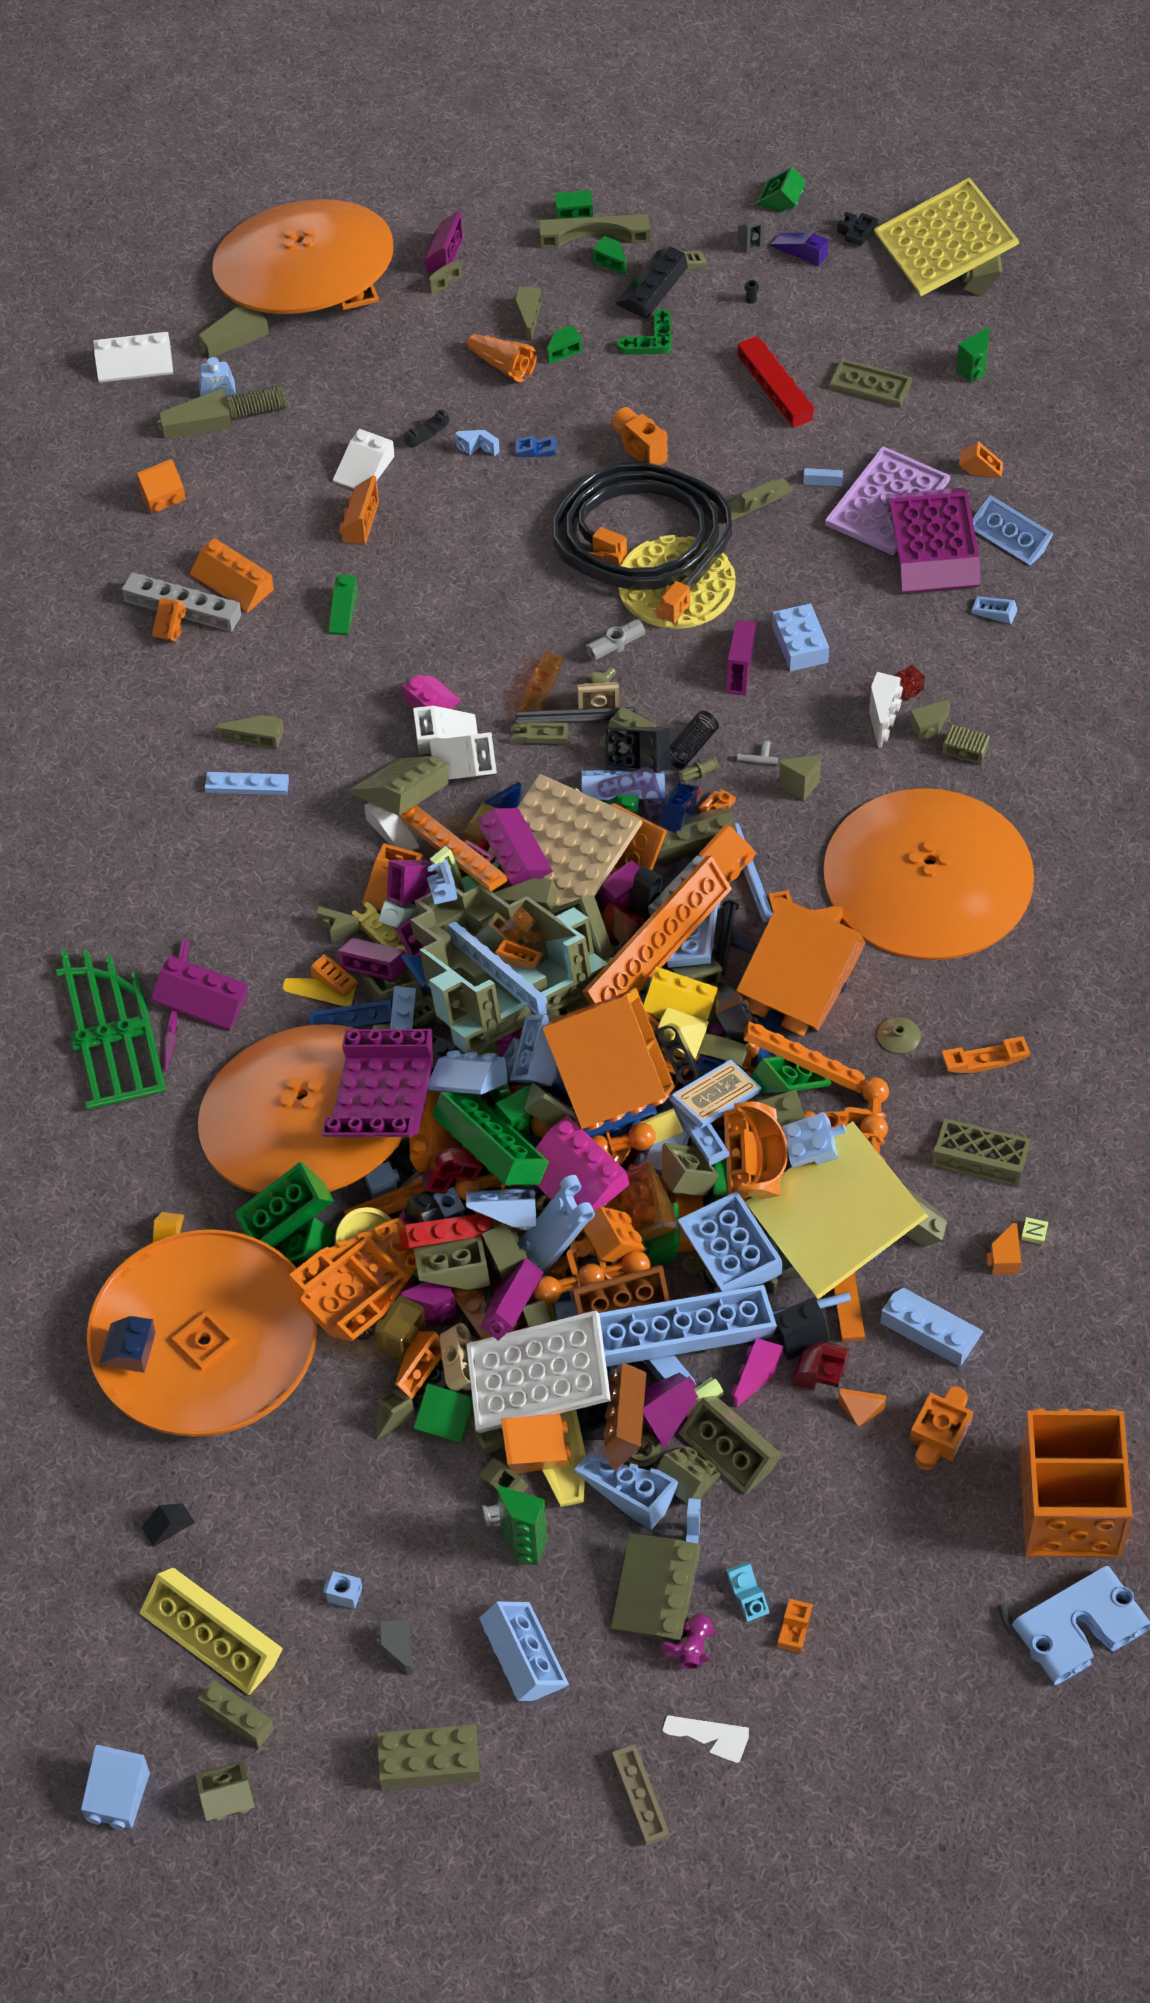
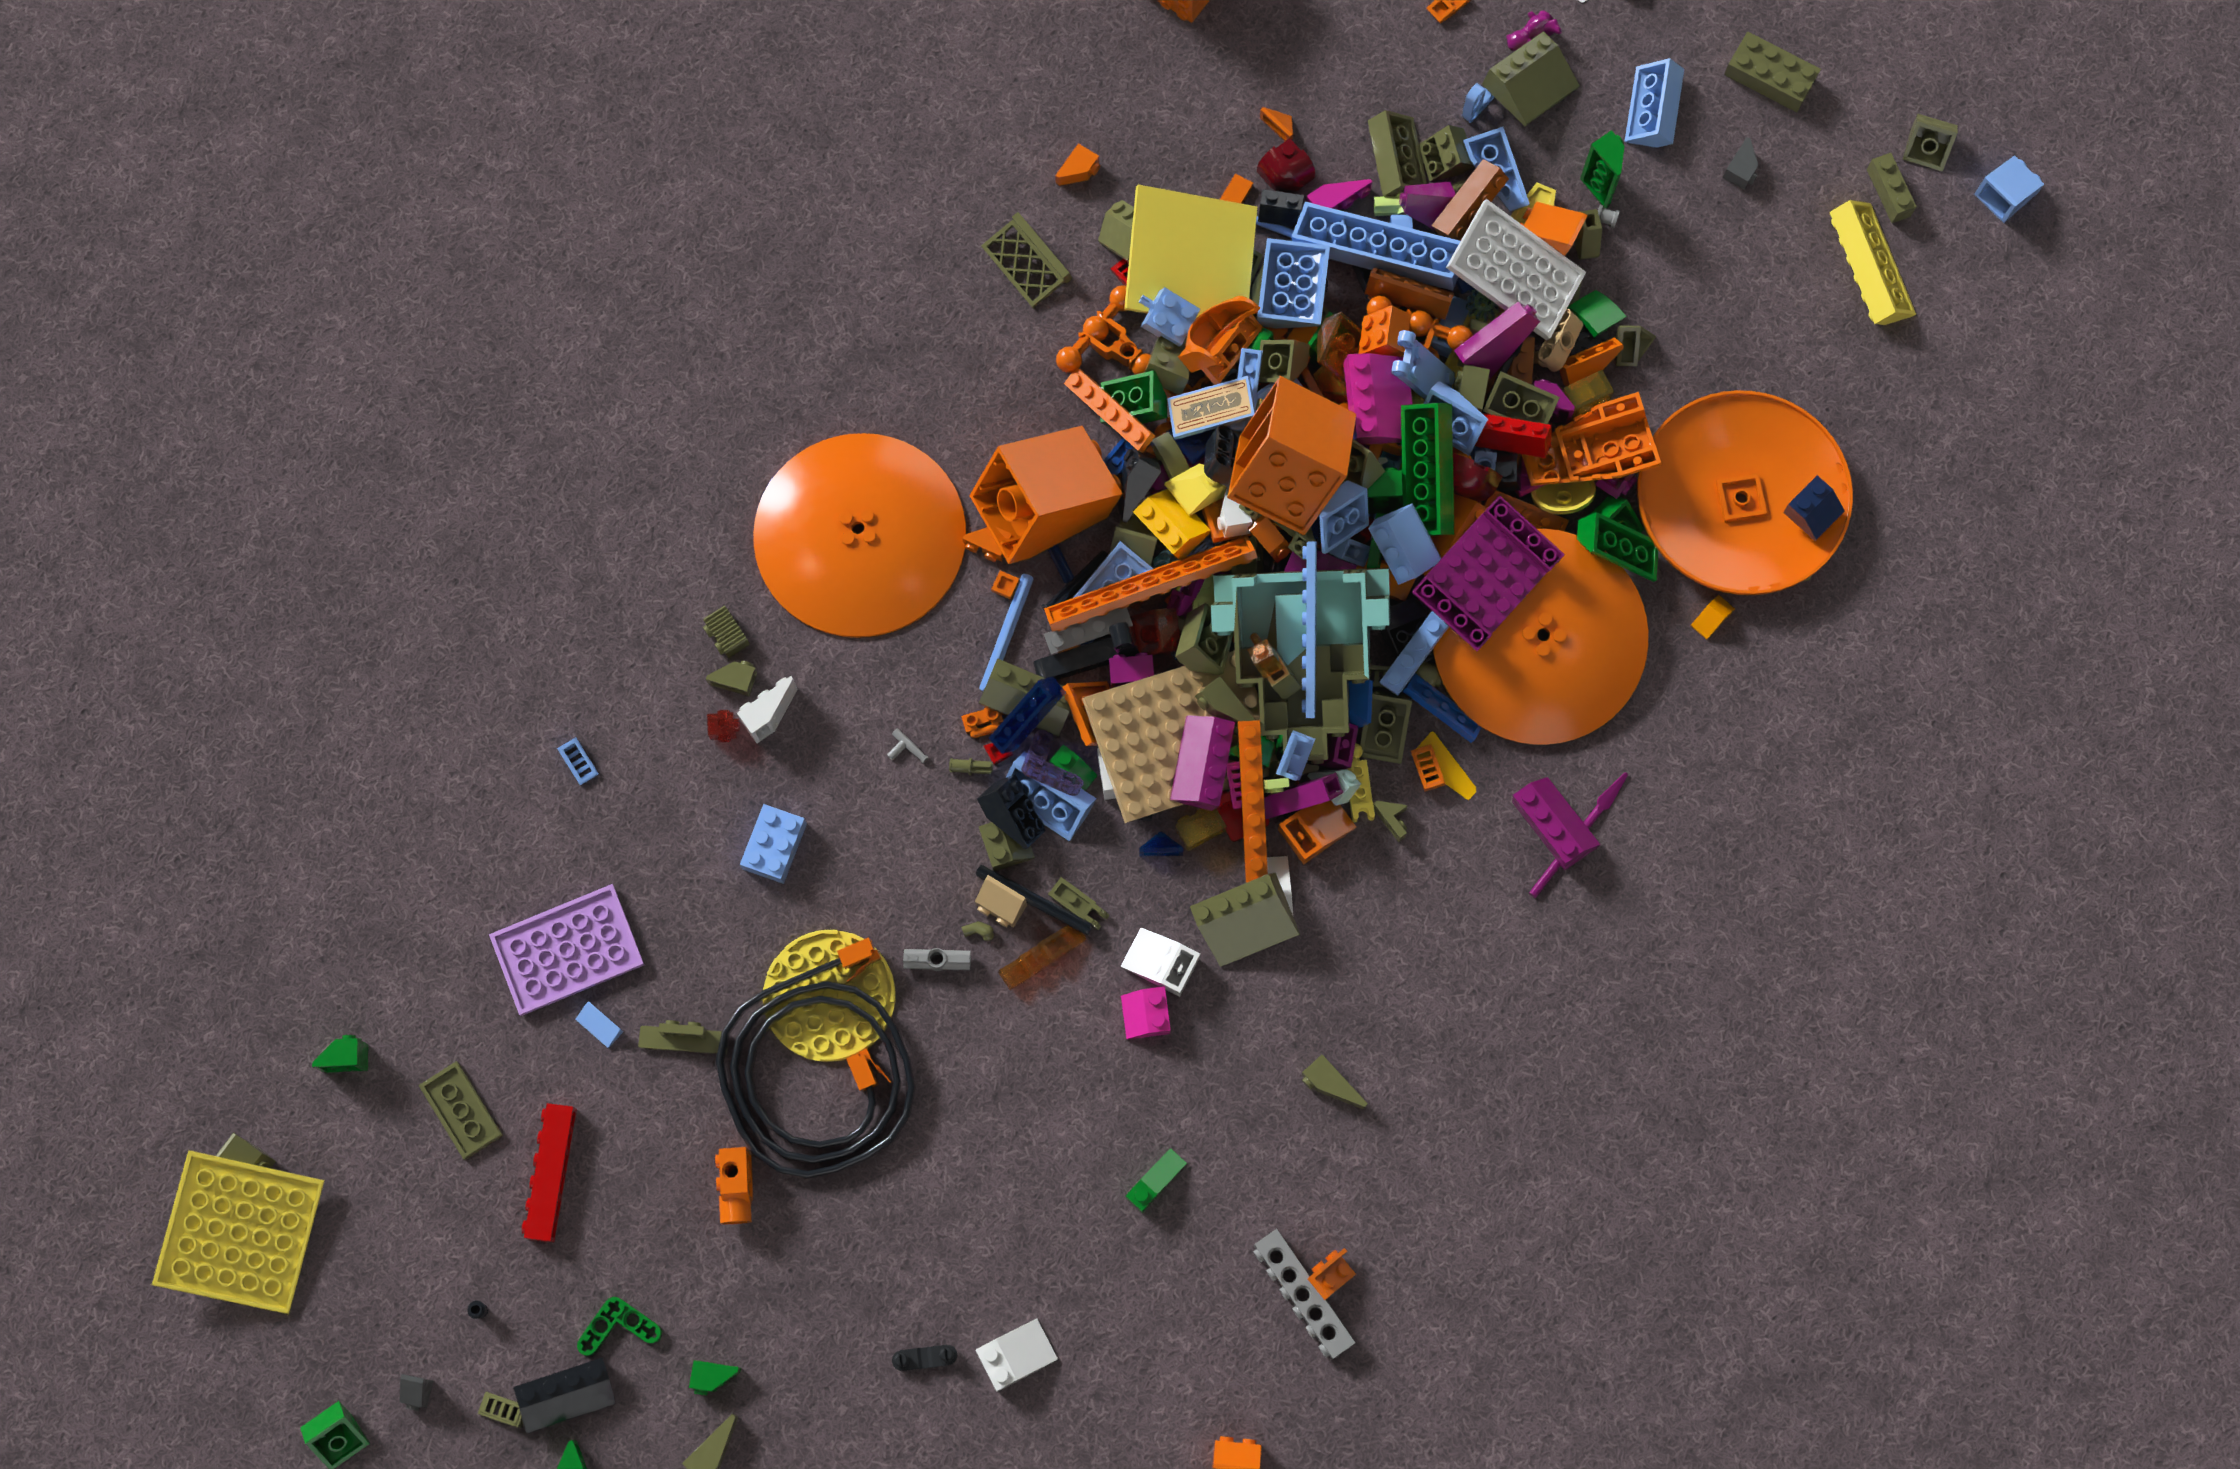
camera: 145 degrees left, 20 degrees up
(104, 1033) = (1652, 839): green piece -> none
(166, 1522) = (1855, 367): black slope -> none
(231, 575) = (1237, 1294): orange slope -> none
(247, 783) = (1373, 1033): light blue plate -> none
(350, 1596) = (1757, 221): light blue brick -> none
(360, 513) = (1066, 1285): orange slope -> none
(372, 959) = (1389, 750): magenta brick -> none
(466, 754) = (1165, 912): white slope -> none
(472, 440) = (895, 1306): light blue slope -> none
(507, 356) = (781, 1389): orange cone -> none
(512, 954) = (1290, 654): orange slope -> none
(531, 447) = (835, 1258): blue slope -> none
(697, 734) = (953, 794): black piece -> none
(729, 852) = (1020, 647): orange slope -> none
(740, 657) = (841, 859): magenta slope -> none
(747, 1593) = (1465, 44): medium azure slope -> none
(800, 775) = (892, 686): olive slope -> none
(803, 245) = (377, 1342): dark purple slope -> none
(856, 229) = (302, 1325): black plate -> none
(898, 1042) = (1007, 413): olive dish -> none
(930, 1326) = (1179, 148): light blue slope -> none
(935, 540) = (565, 868): magenta slope -> none
(941, 1427) = (1235, 56): orange brick -> none
(980, 461) = (448, 931): orange slope -> none
(986, 1058) = (955, 335): orange slope -> none
(1011, 530) = (490, 834): light blue slope -> none
(1034, 1231) = (1040, 173): yellowish green tile -> none

